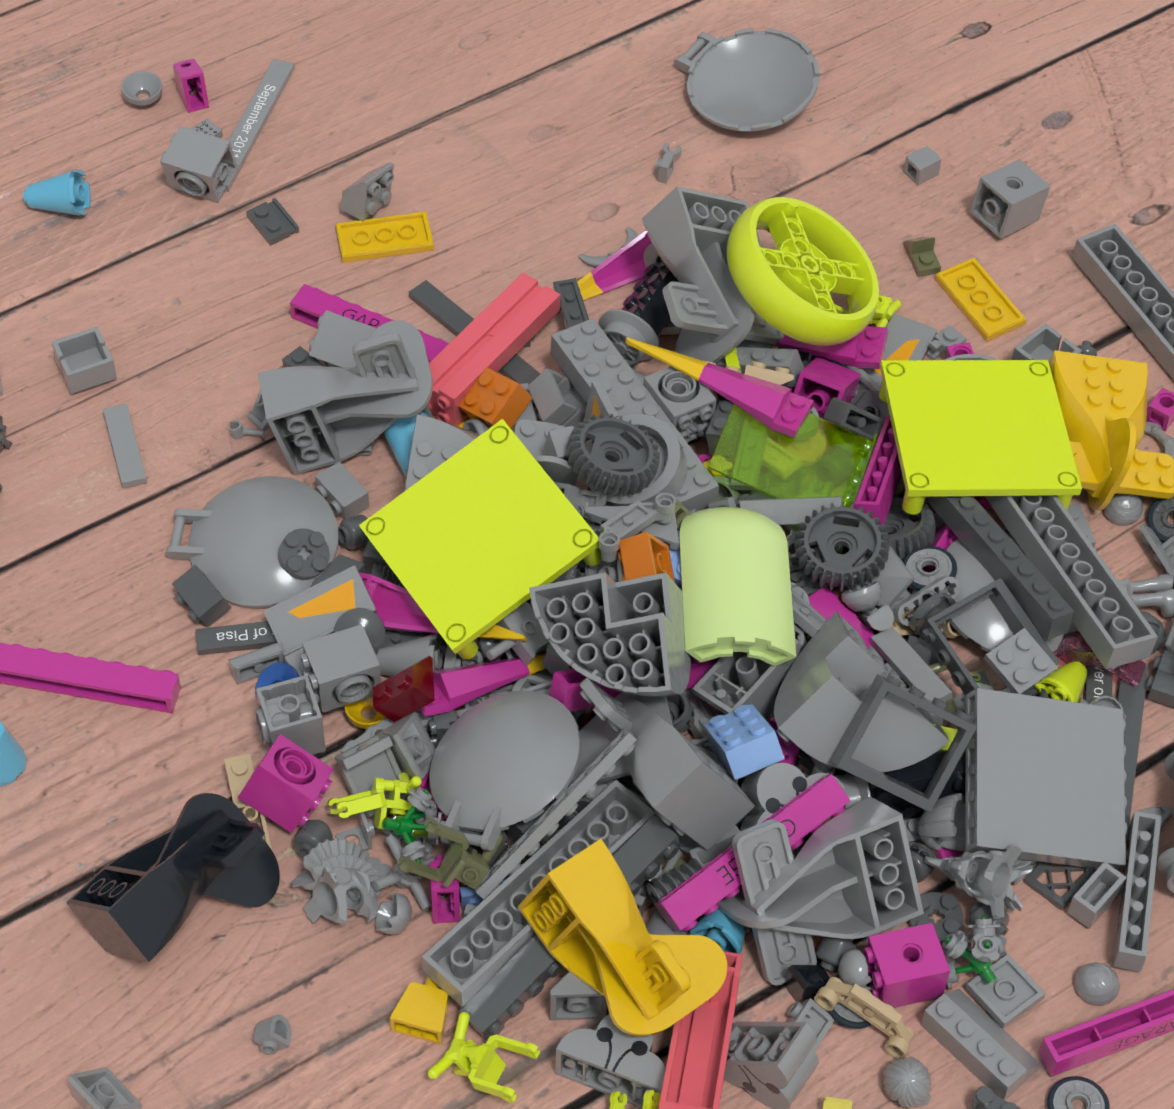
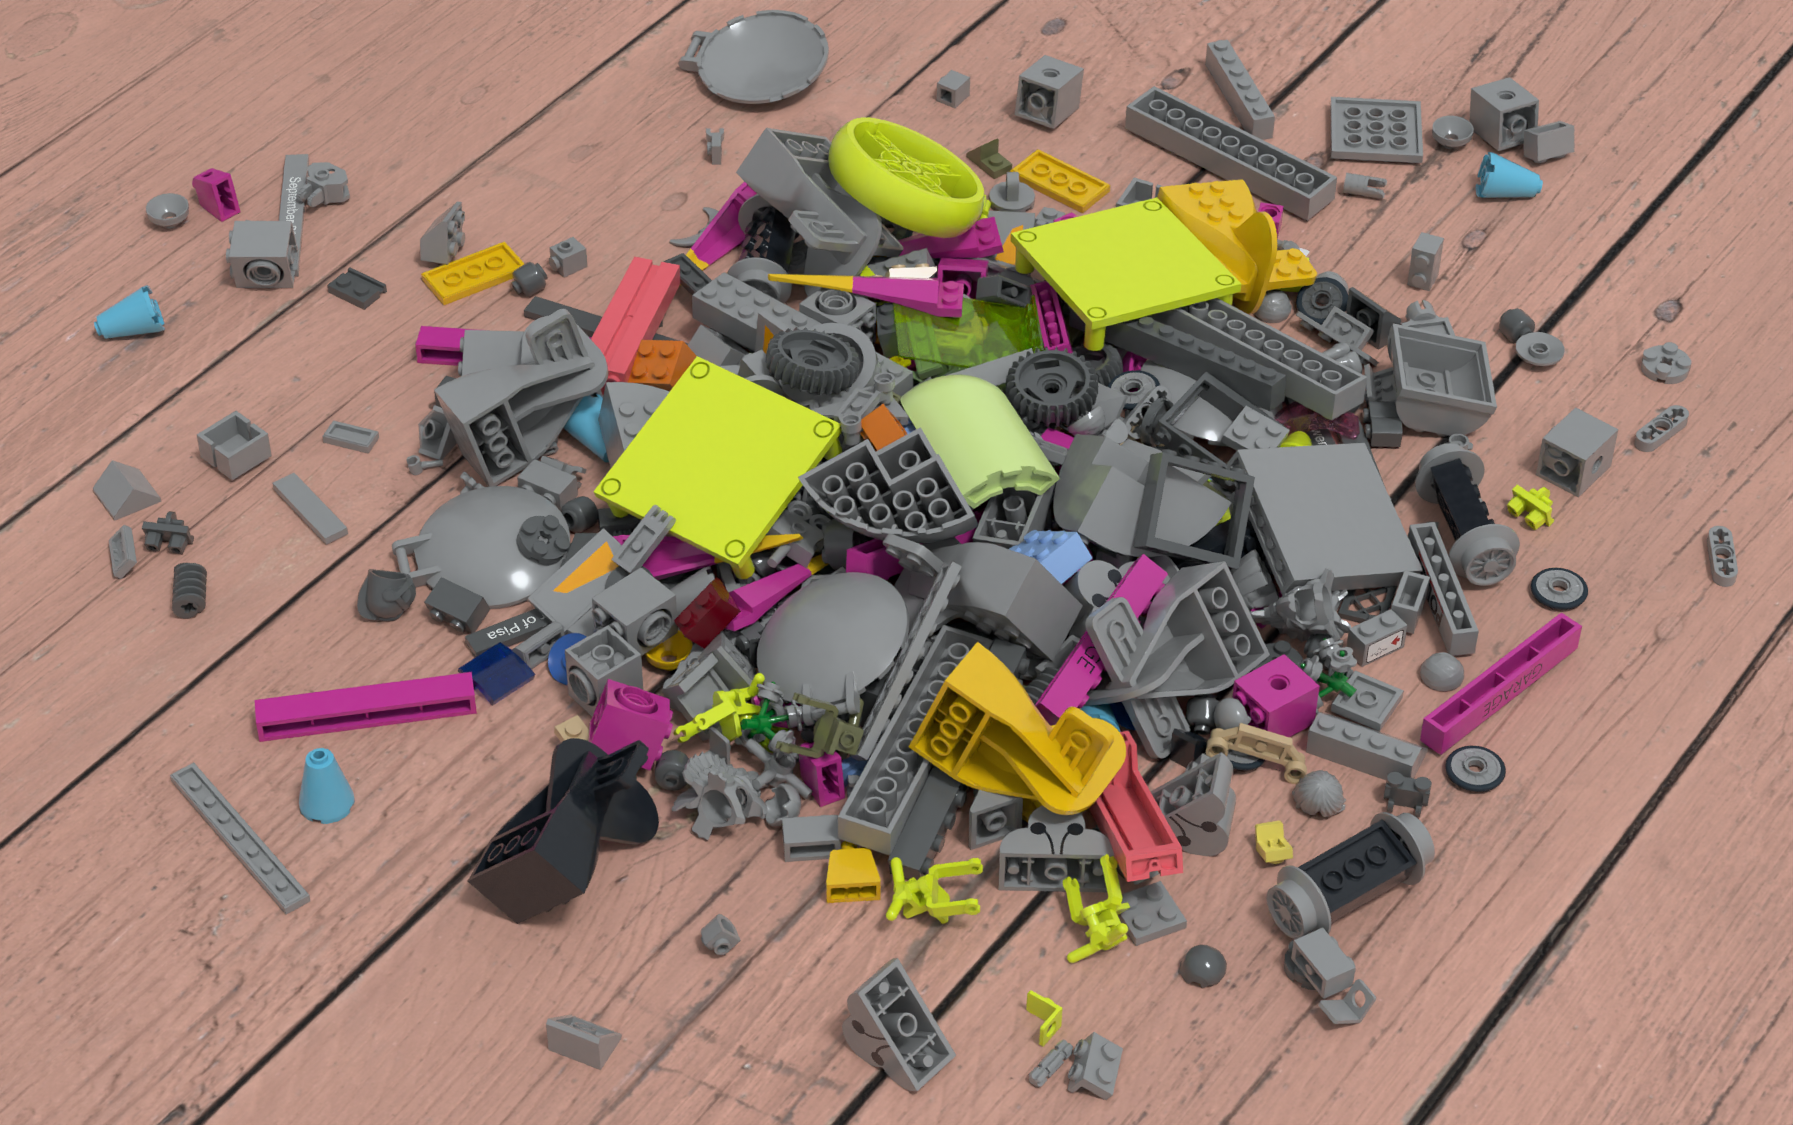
camera: 20 degrees left, 10 degrees down
(143, 562) = (385, 595): none -> dark grey helmet
(195, 380) = (350, 437): none -> light grey tile
(206, 678) = (498, 672): none -> clear blue slope
(275, 467) = (470, 483): none -> light grey plant
(288, 104) = (324, 187): none -> light grey hinge
(364, 475) = (564, 467): none -> light grey plate
(381, 593) = (644, 539): none -> light grey hinge
(401, 956) = (810, 837): none -> light grey piece
(427, 260) = (529, 279): none -> dark grey head
(474, 246) = (568, 257): none -> light grey brick
(924, 303) = (1012, 195): none -> light grey tile
(1046, 923) = (1377, 637): none -> light grey brick

